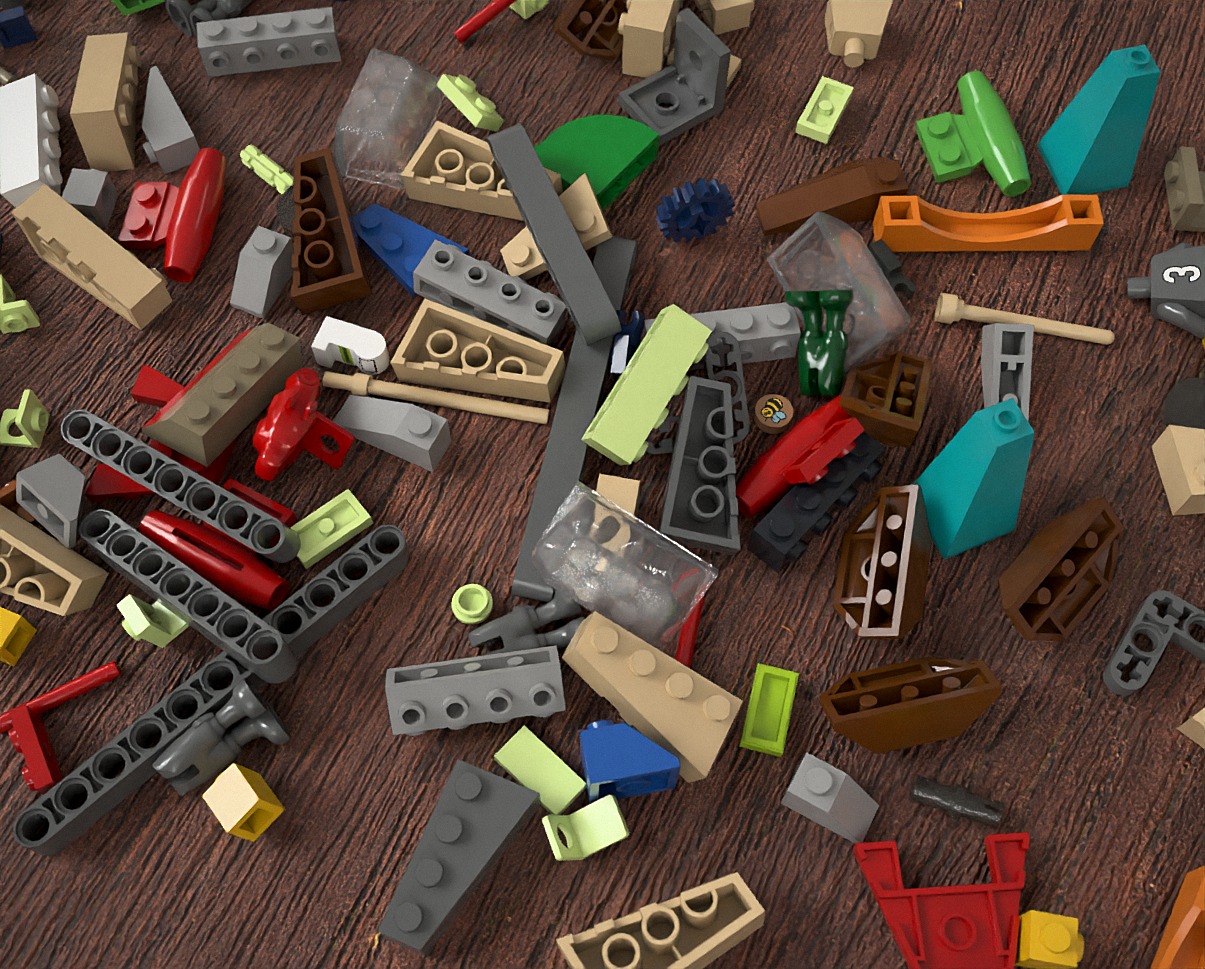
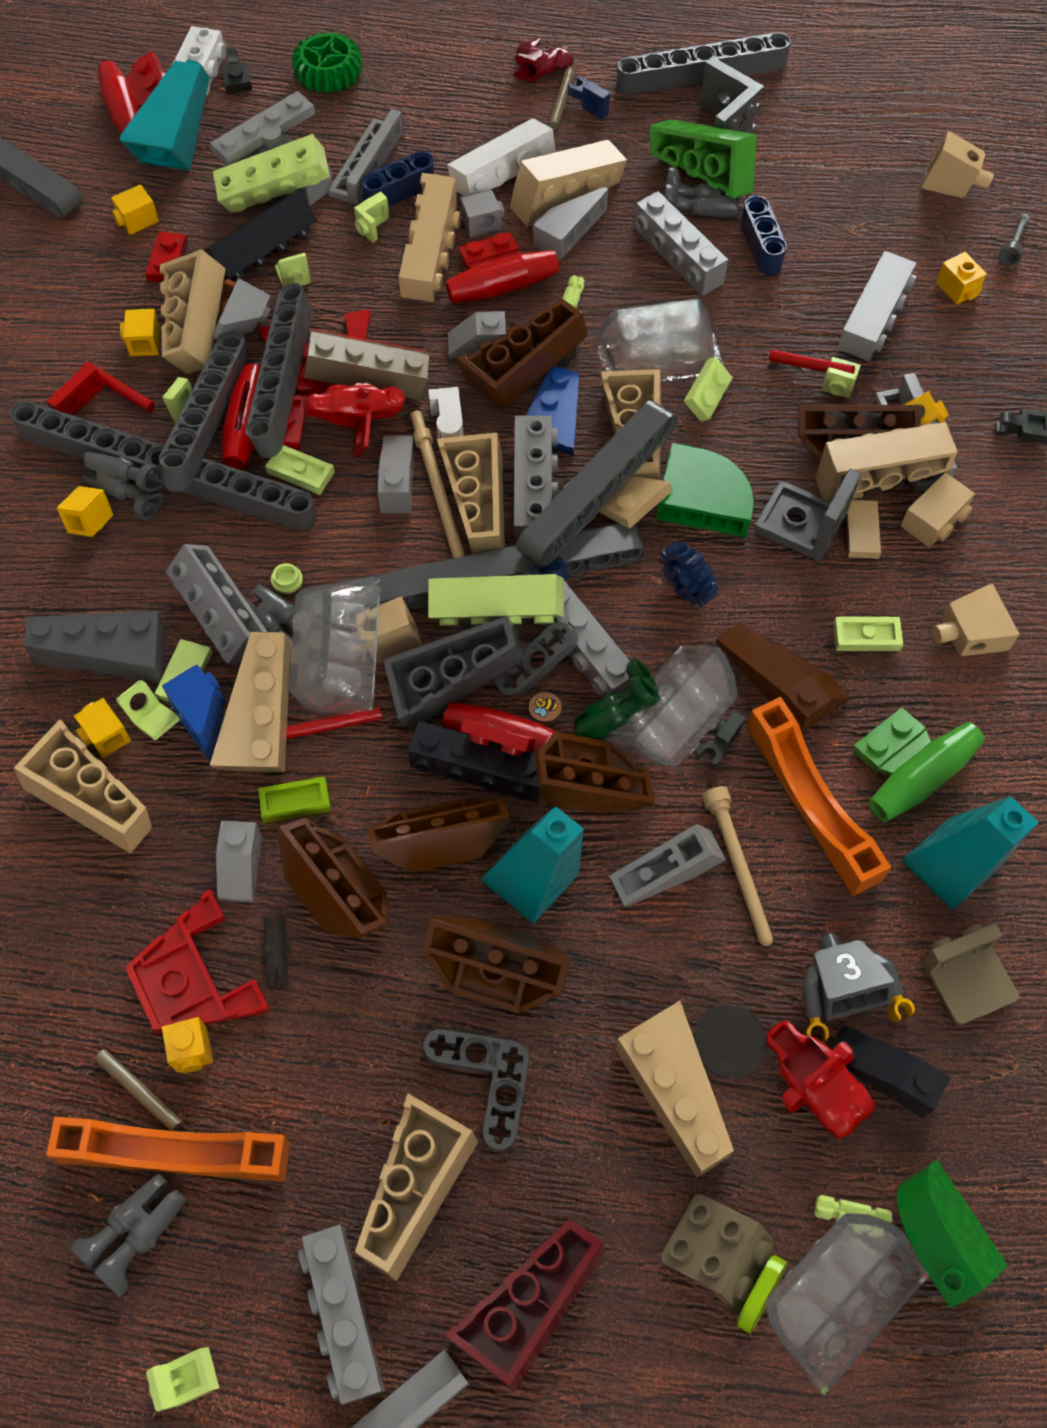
camera: 65 degrees right, 0 degrees up
(575, 898) = (101, 728): none -> yellow brick

